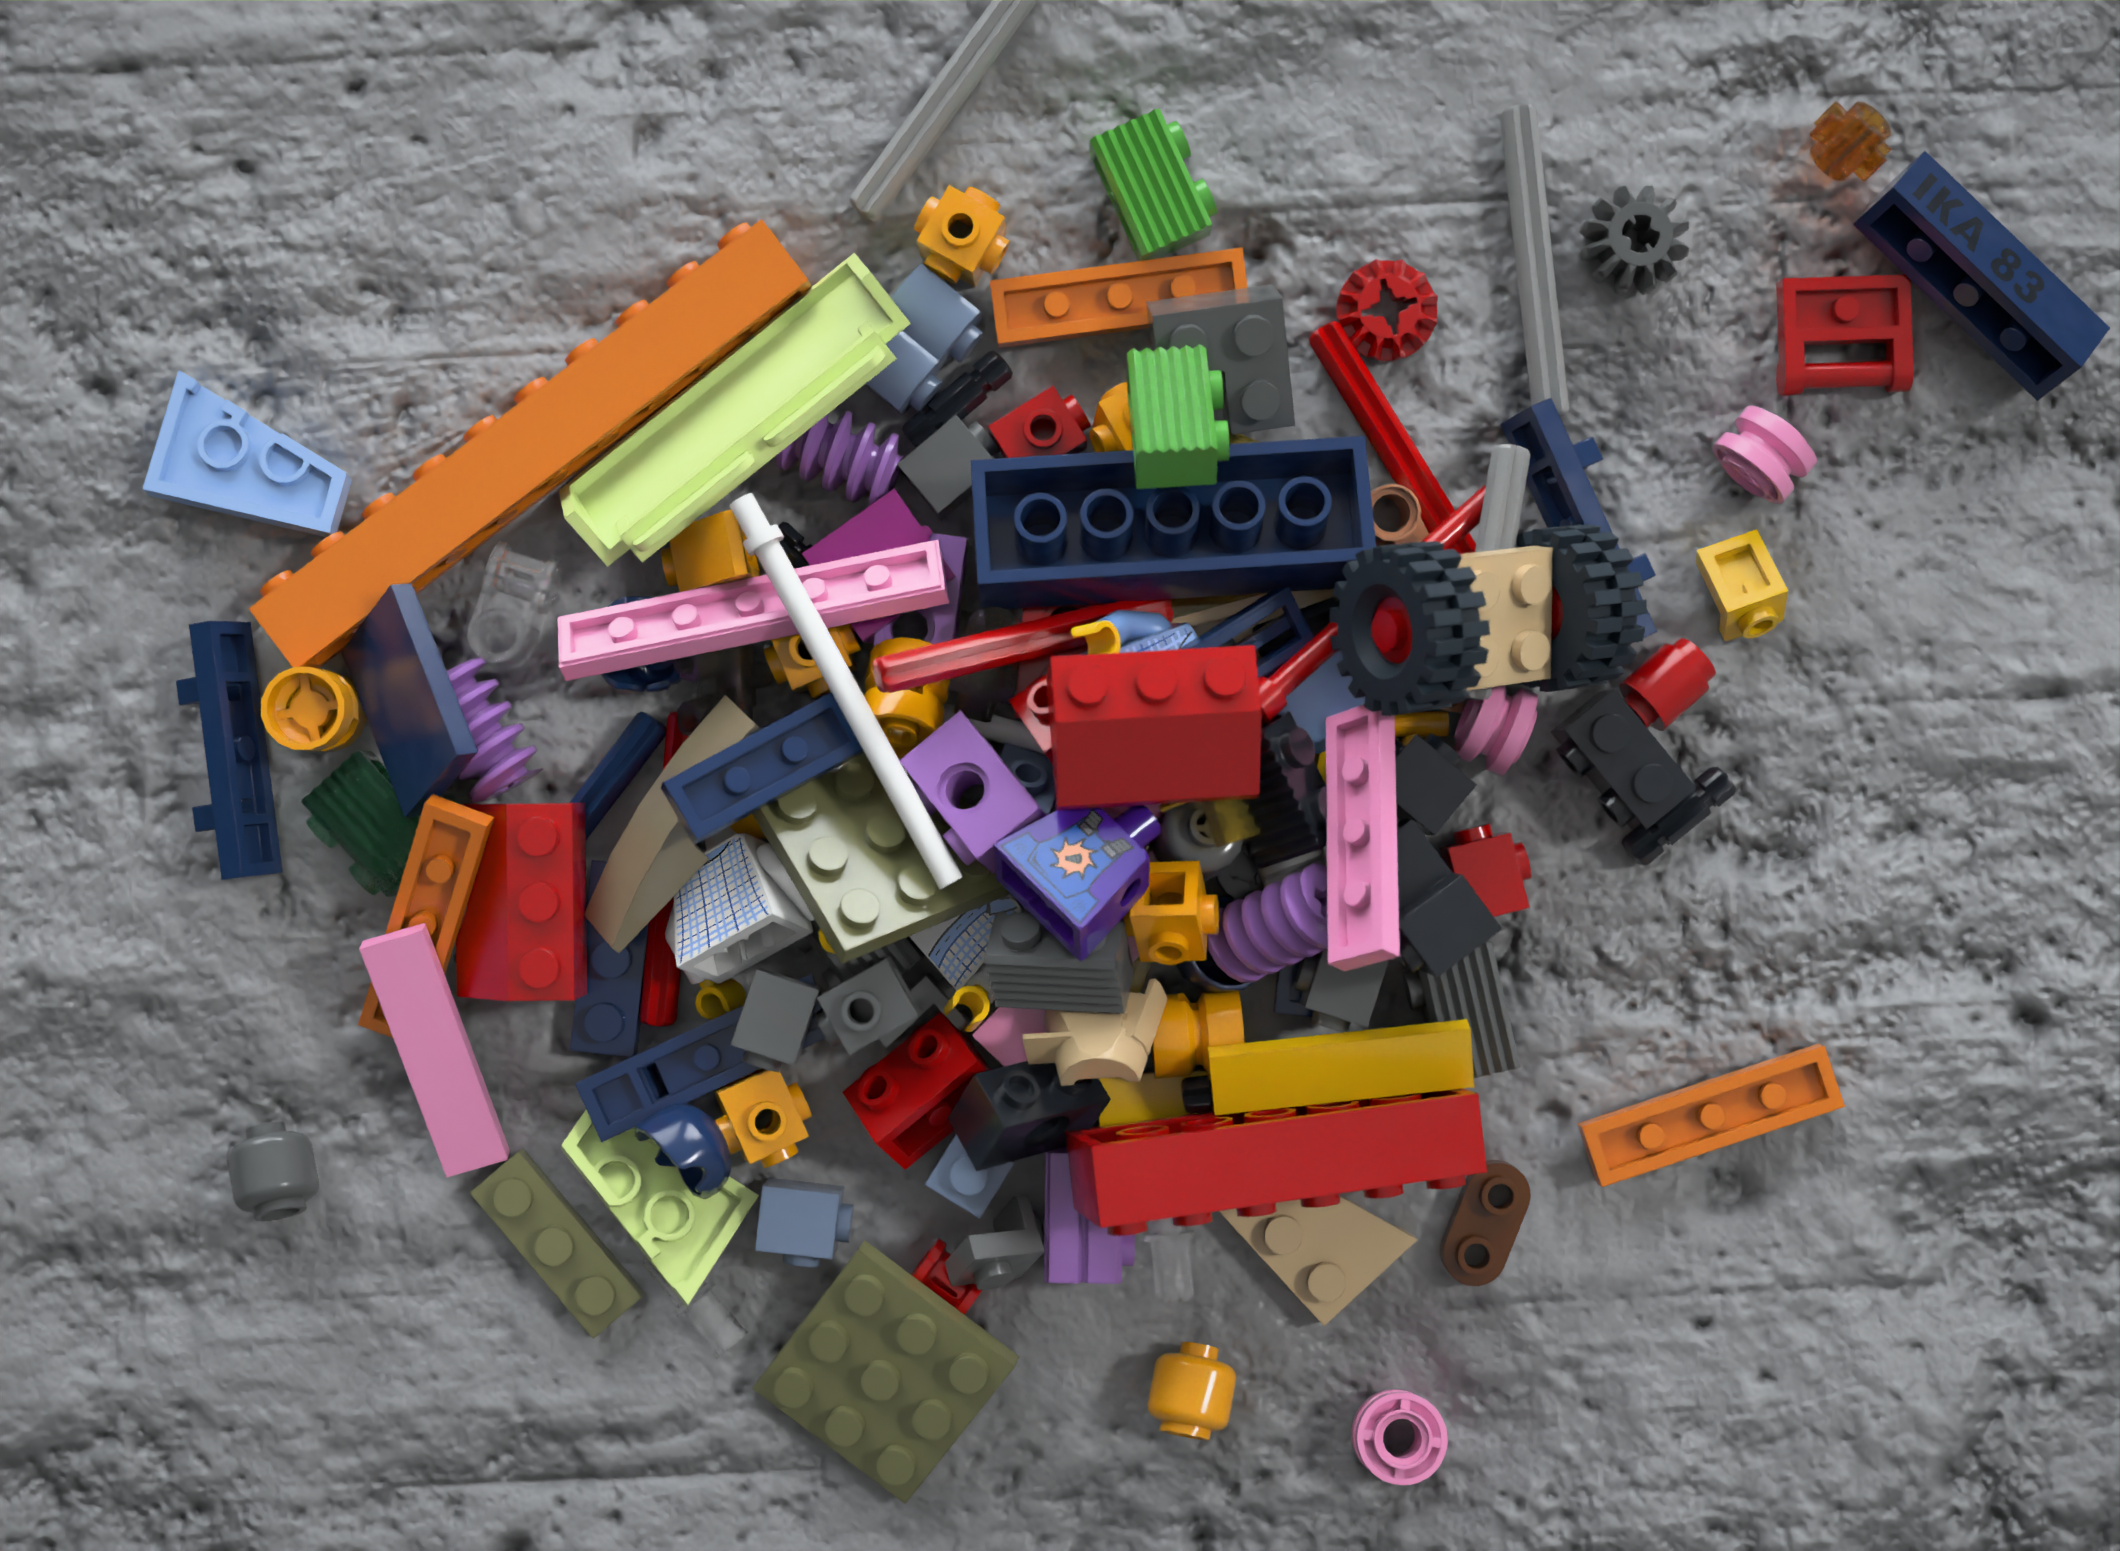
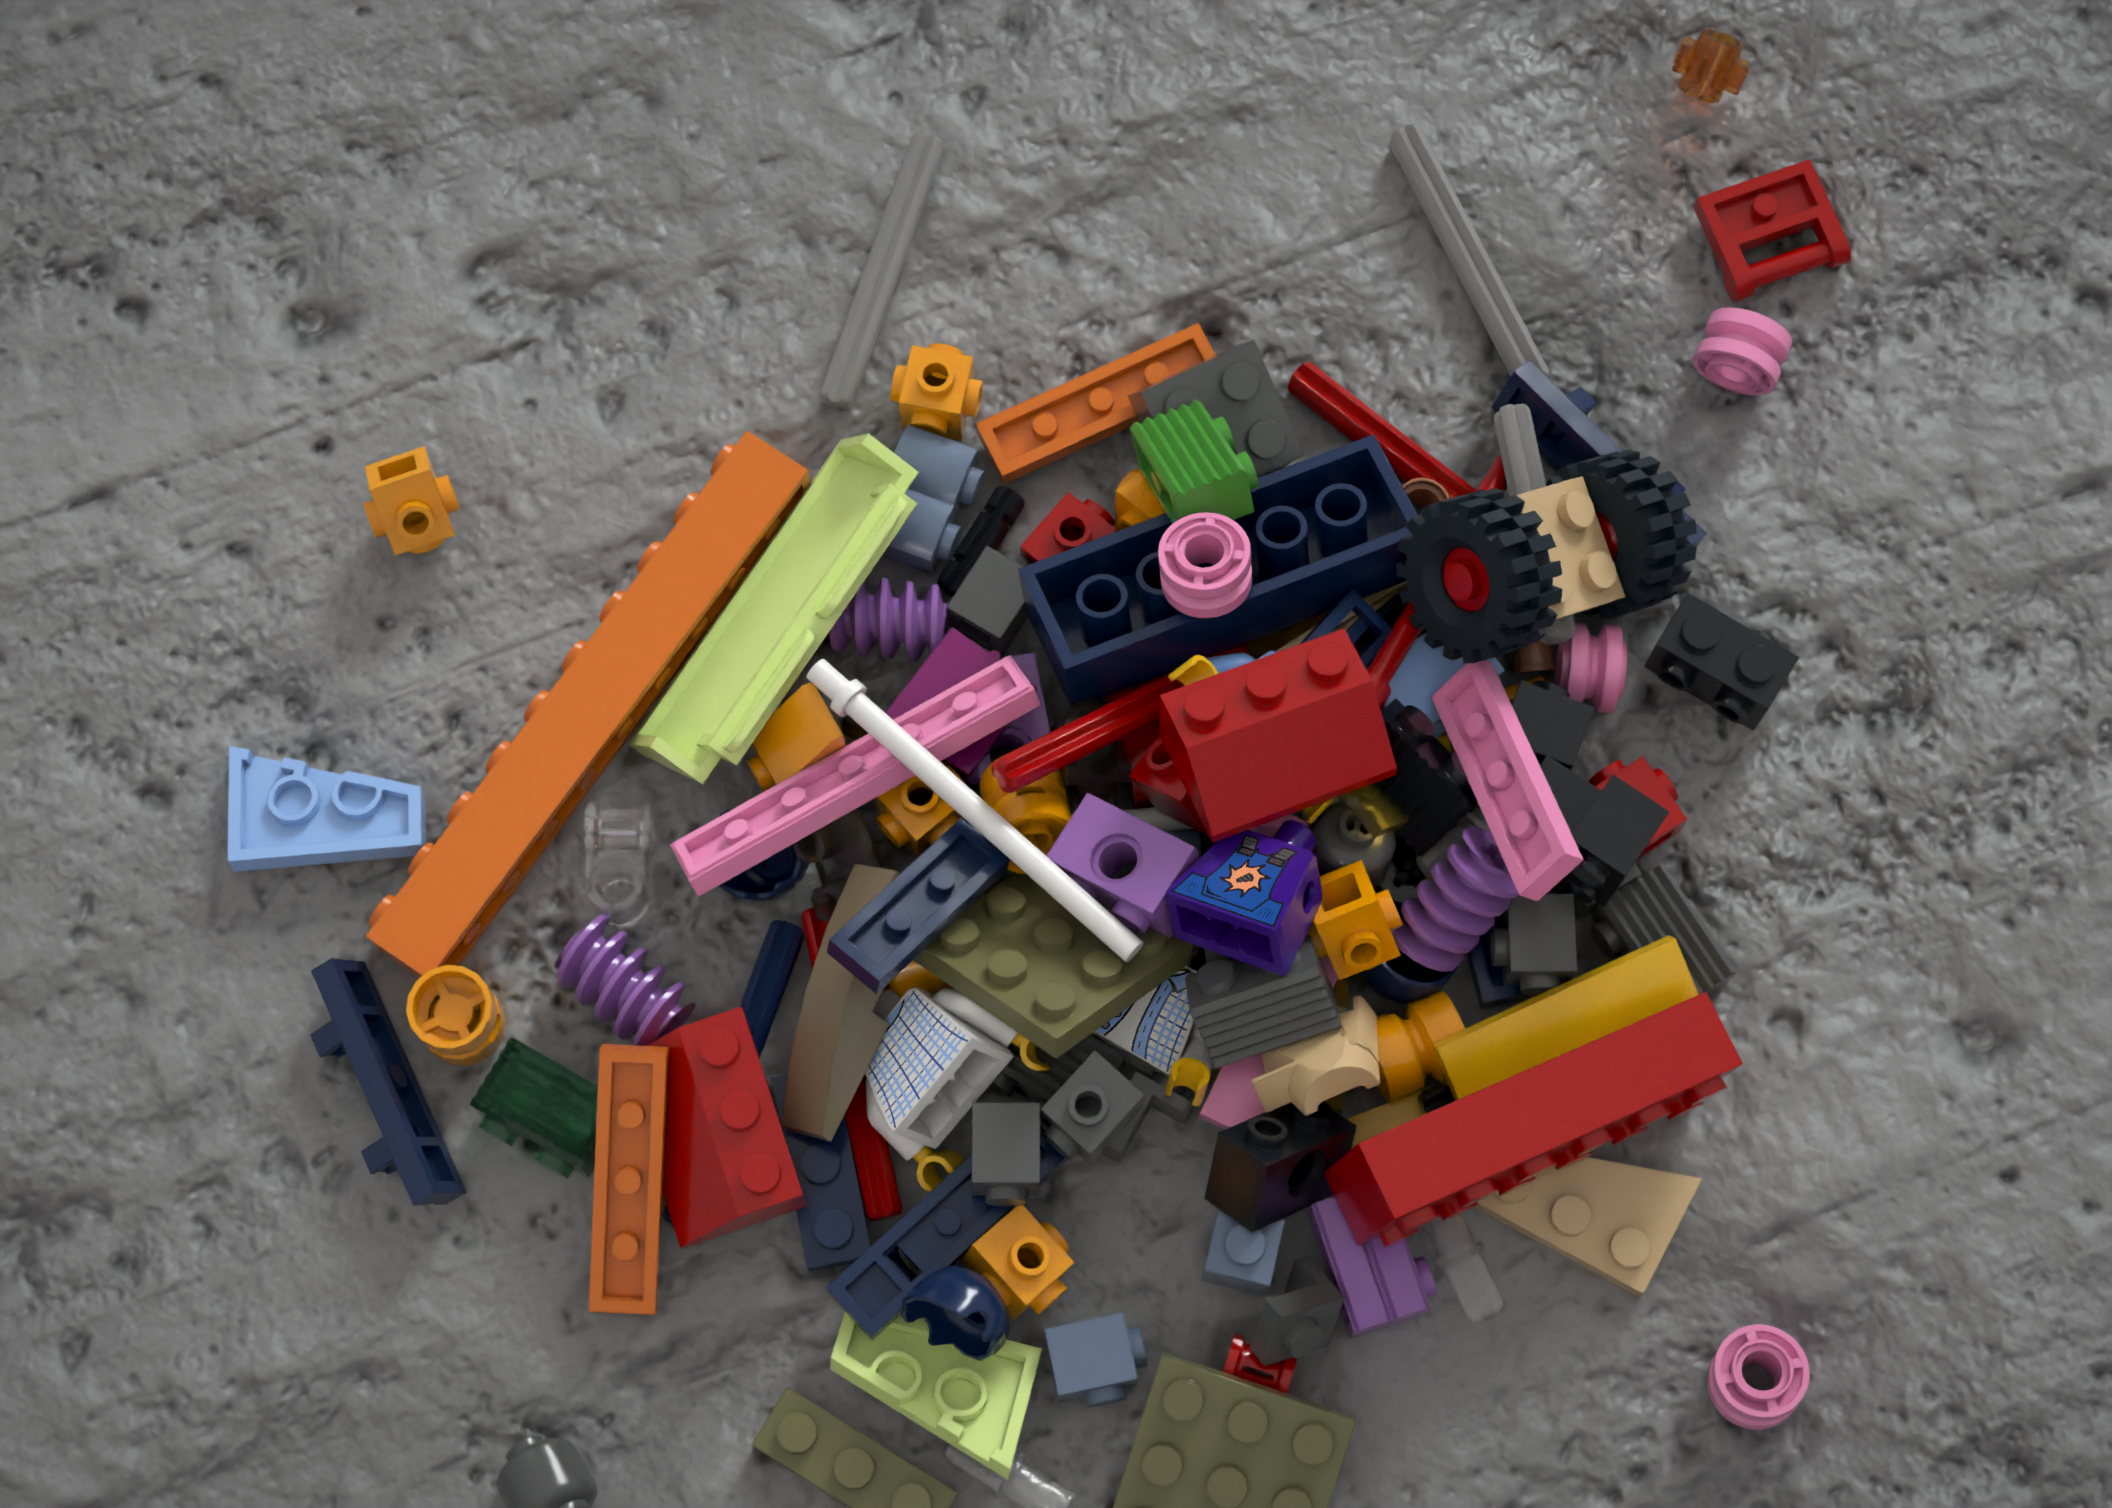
camera: 20 degrees left, 15 degrees down
(408, 699) = (549, 969): dark blue tile -> none
(415, 182) = (410, 502): none -> light orange brick
(435, 1049) = (676, 1306): bright pink tile -> none
(914, 1089) = (1161, 1188): red brick -> none
(1151, 185) = (1096, 296): bright green brick -> none
(1153, 499) = (1201, 540): none -> bright pink wheel
(1192, 1392) = (1538, 1401): light orange head -> none
(1371, 334) = (1344, 362): red gear -> none
(1481, 1223) = (1760, 1141): reddish brown plate -> none
(1653, 230) = (1572, 203): dark grey gear -> none
(1668, 683) = (1738, 578): red brick -> none
(1710, 1115) = (1933, 966): orange plate -> none
(1712, 789) = (1793, 700): black axle -> none
(1743, 585) = (1771, 474): yellow bracket -> none
(1982, 276) = (1874, 139): dark blue brick -> none

